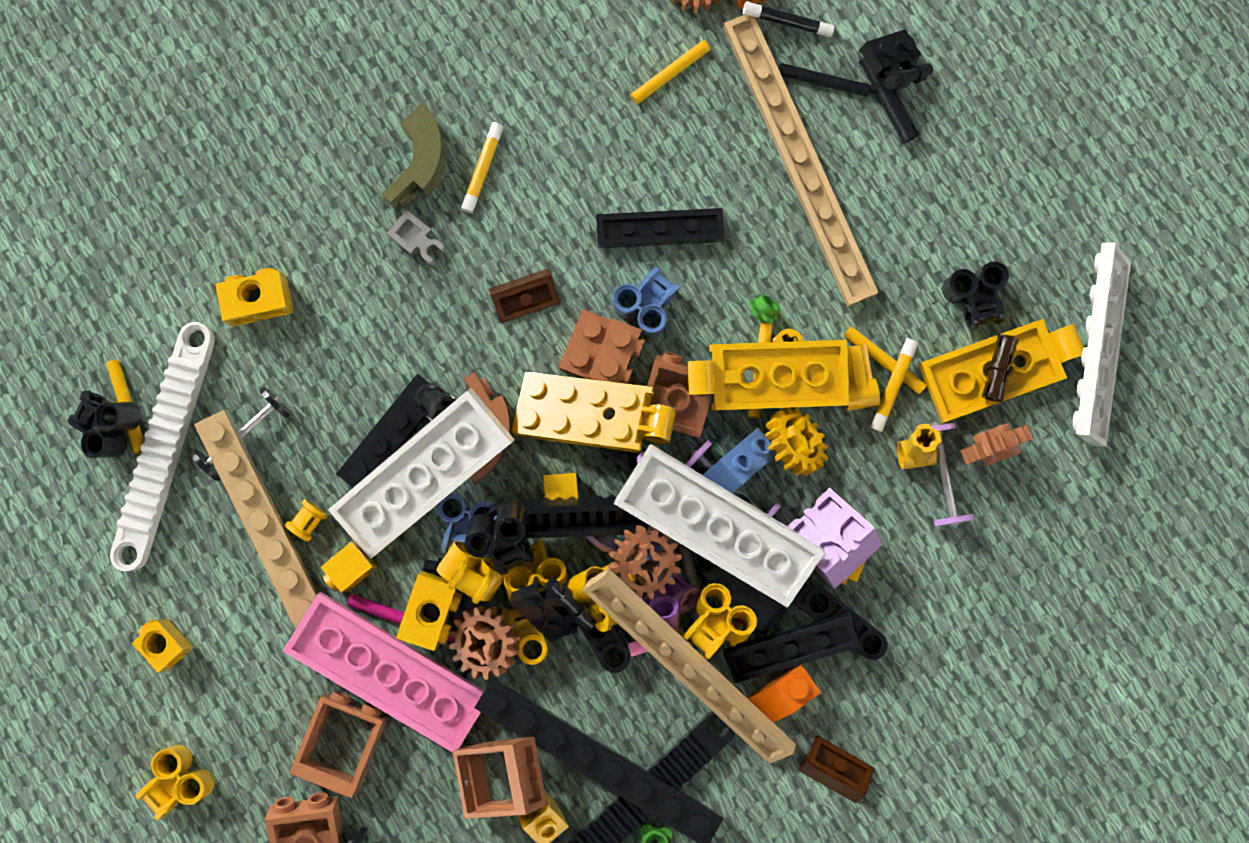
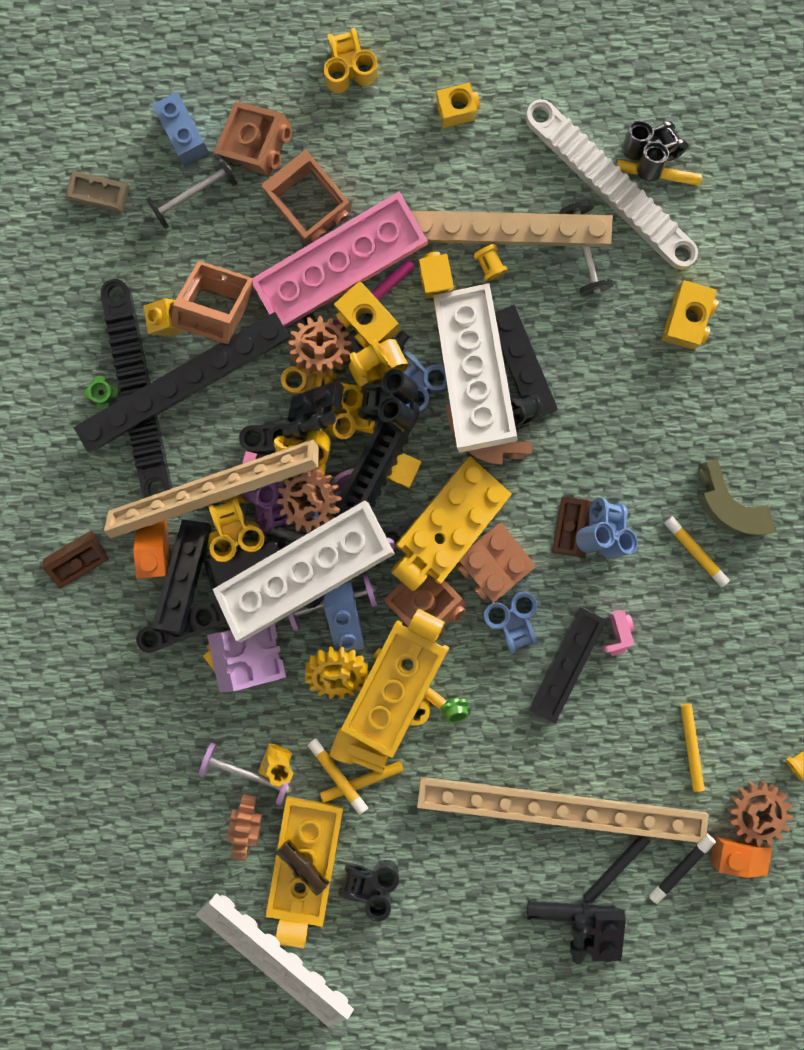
camera: 120 degrees right, 5 degrees up
(413, 235) = (670, 465): light grey plate -> none
(509, 260) = (607, 531): none -> medium blue piece
(595, 195) = (622, 627): none -> bright pink bracket

